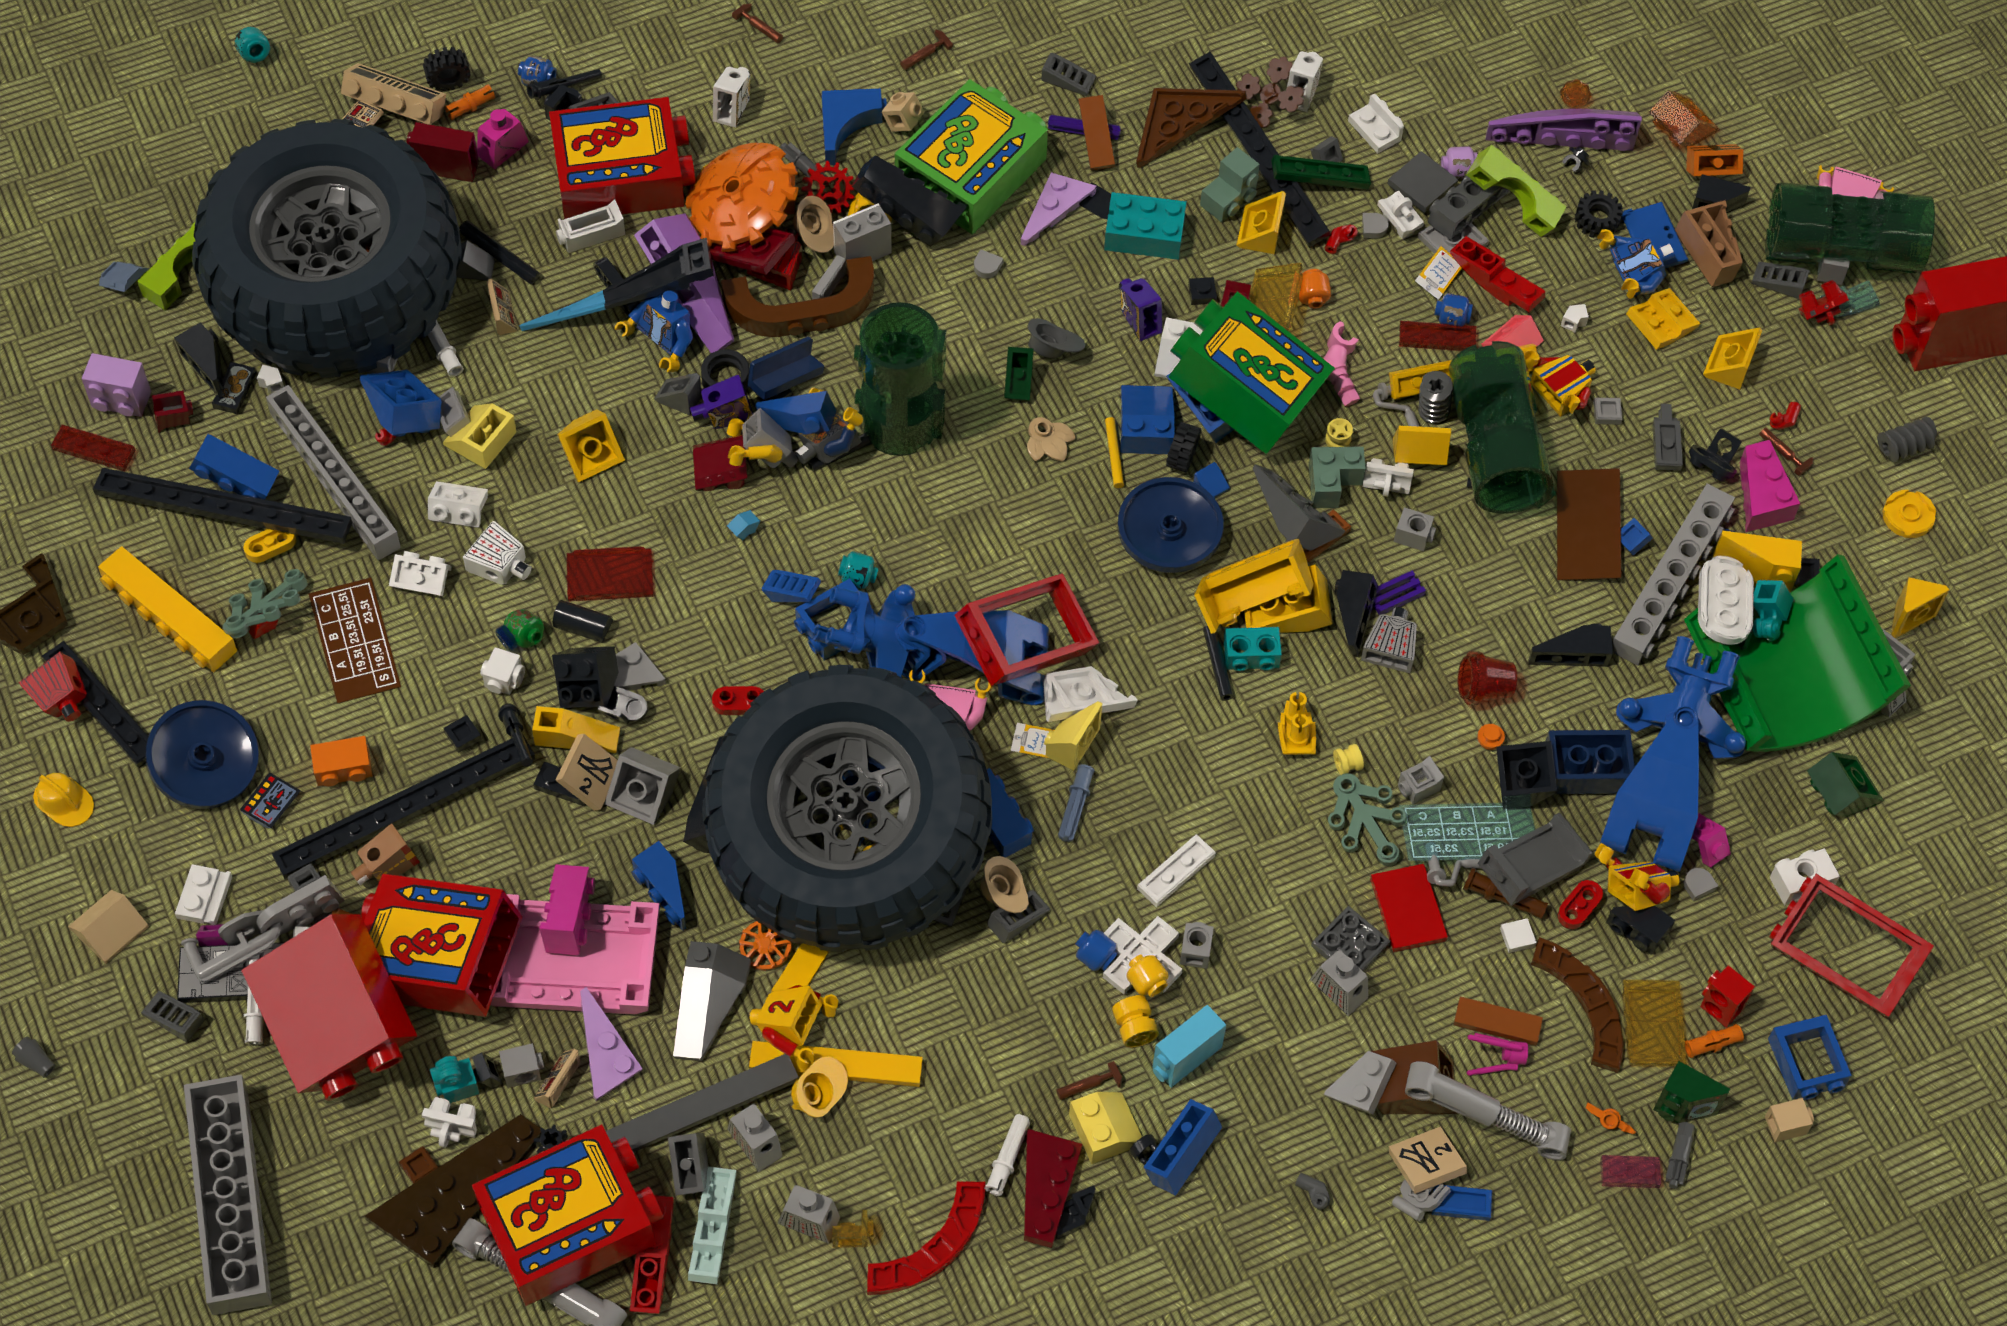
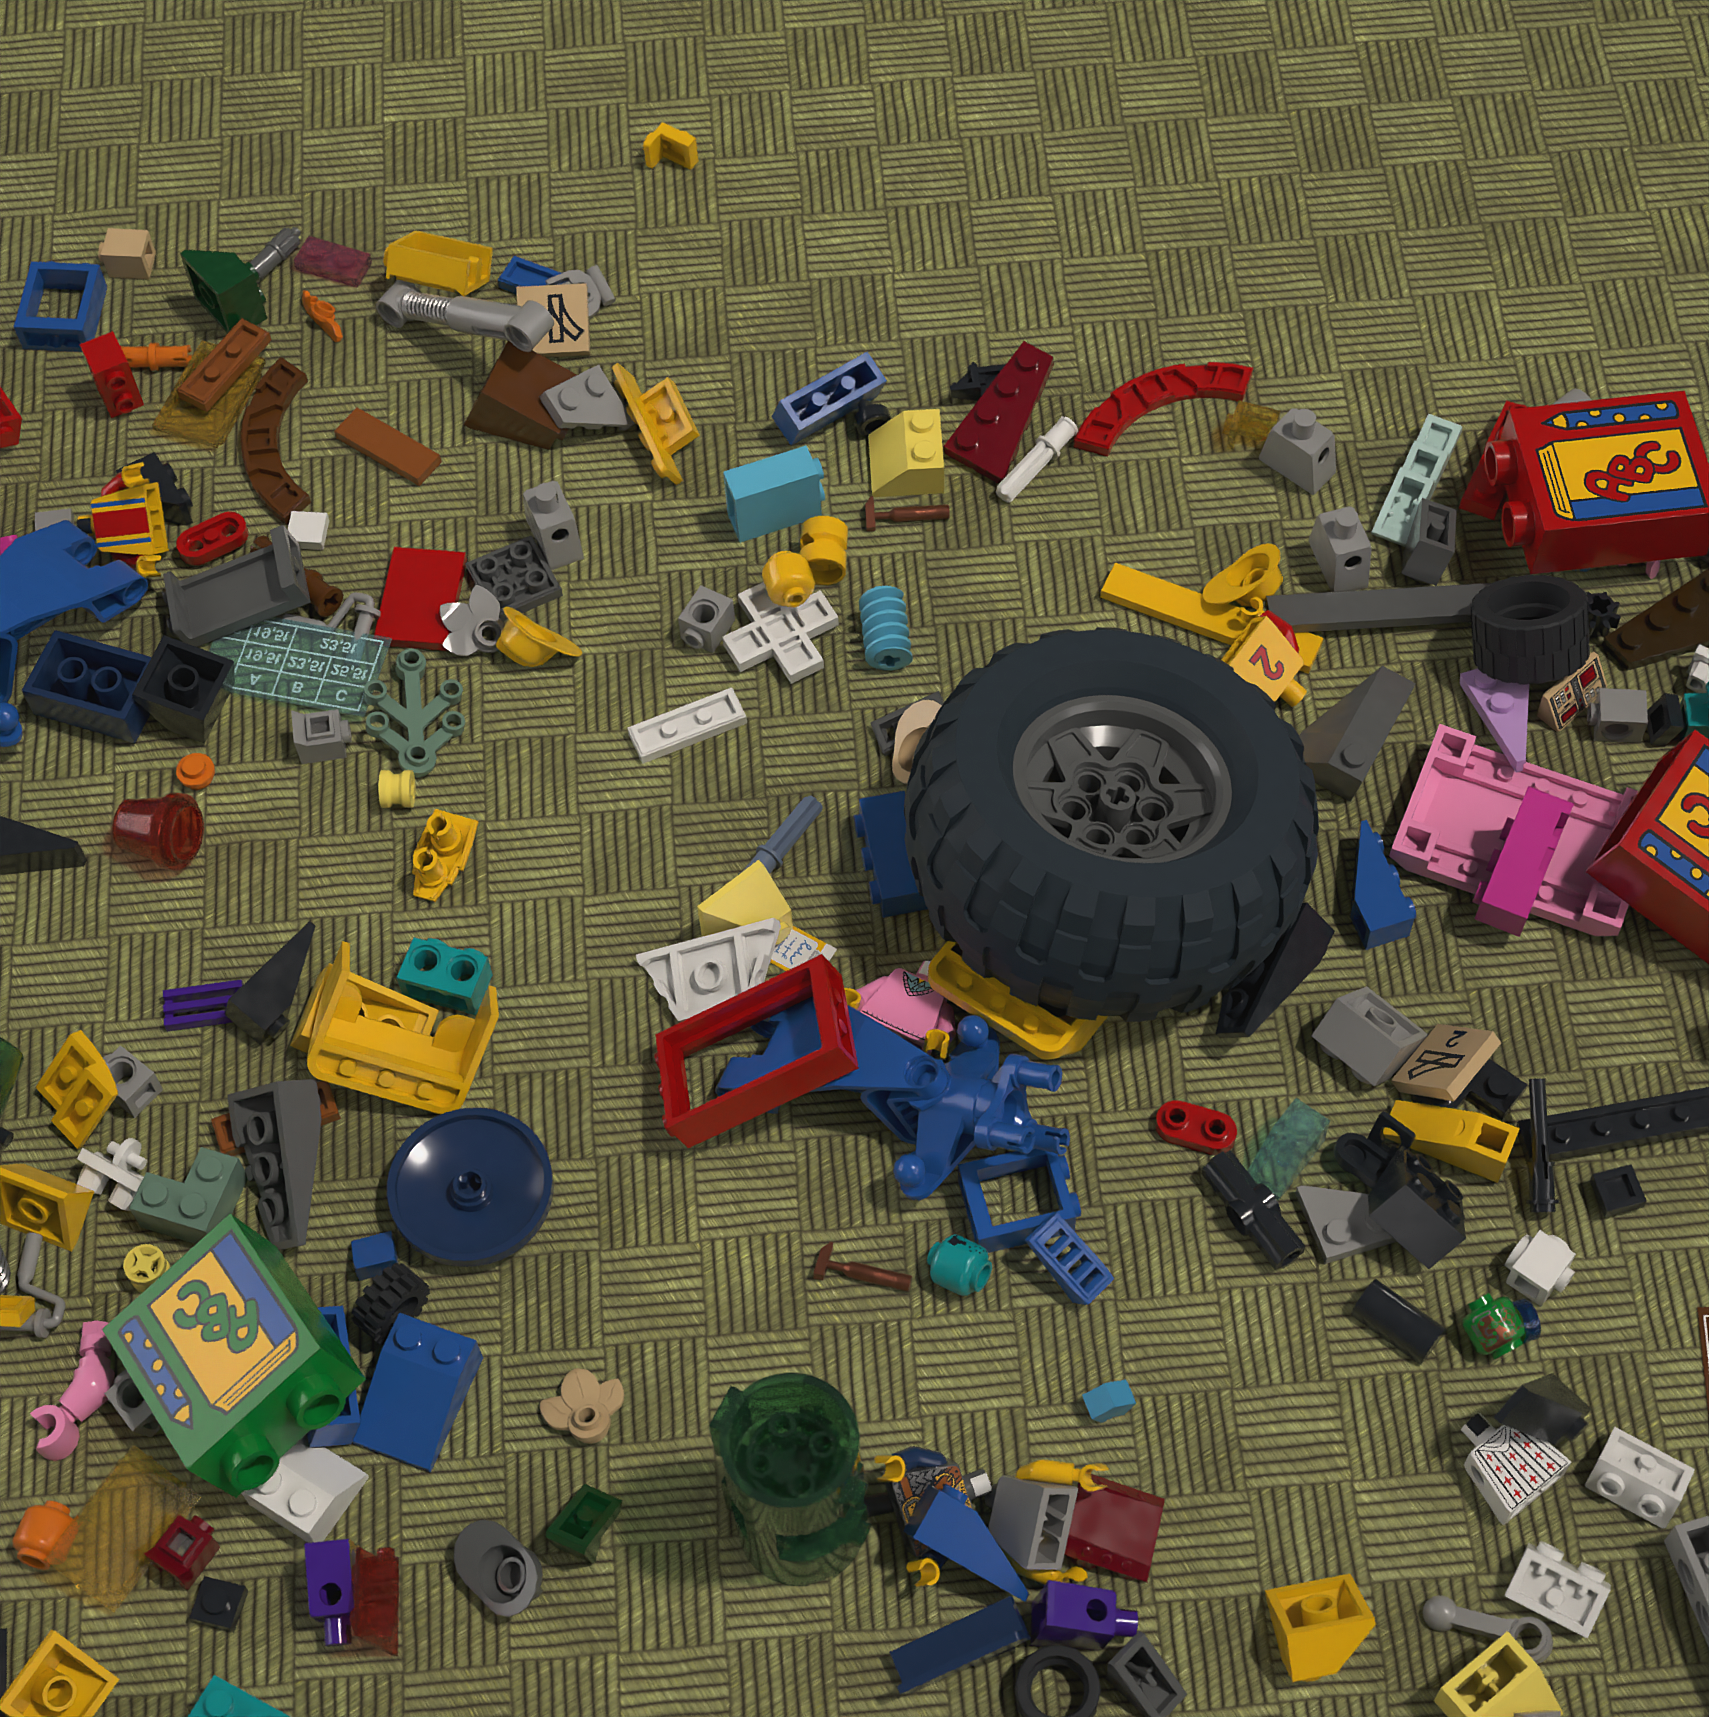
camera: 155 degrees left, 0 degrees up
(482, 581) = (1545, 1411): none -> black slope
(519, 477) = (1442, 1614): none -> light grey piece
(609, 573) = (1338, 1392): clear red piece -> none
(632, 1091) = (1530, 629): none -> black tyre
(675, 700) = (1289, 1147): none -> clear light blue slope
(688, 655) = (1253, 1210): none -> black piece
(920, 557) = (860, 1271): none -> copper piece
(1063, 972) = (885, 628): none -> medium azure piece
(1096, 950) = (834, 646): blue head -> none
(1111, 299) = (376, 1598): none -> clear red hinge
(1114, 452) = (493, 1354): yellow bar -> none
(1218, 664) = (504, 965): black piece -> none
(1305, 891) = (531, 643): none -> yellow piece
(1307, 1097) = (661, 417): none -> yellow bracket
(1317, 1190) = (693, 332): dark grey arm -> none
(1358, 891) = (469, 621): none -> light grey plate
(1392, 641) = (249, 928): light grey torso -> none
(1434, 507) = (78, 1088): none -> yellow slope
(1512, 1051) = (394, 403): dark pink plant -> none
(1539, 1172) = (438, 262): none -> yellow window
(1654, 1042) = (224, 365): none -> dark orange tile

